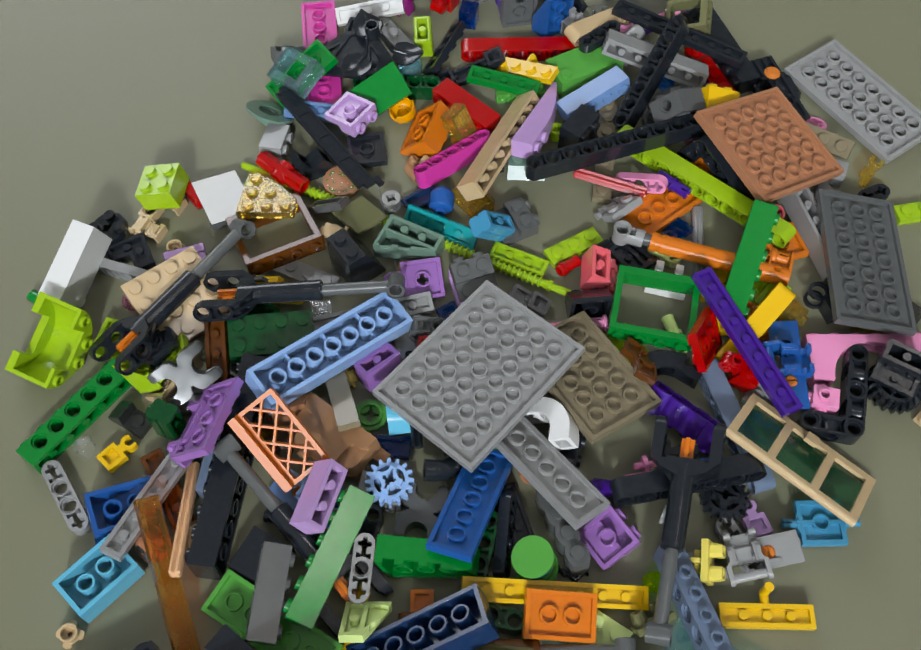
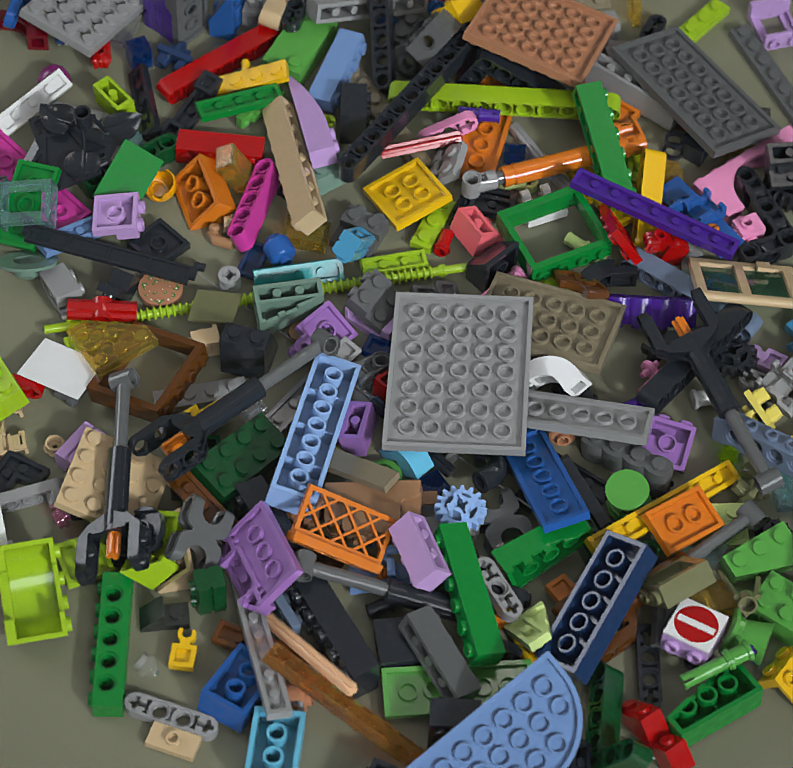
camera: 40 degrees left, 5 degrees down
(50, 518) = (173, 741): none -> tan plate
(328, 205) = (176, 314): flat silver tile -> none
(494, 29) = (175, 54): none -> dark blue hips
(569, 213) = (407, 194): none -> yellow plate

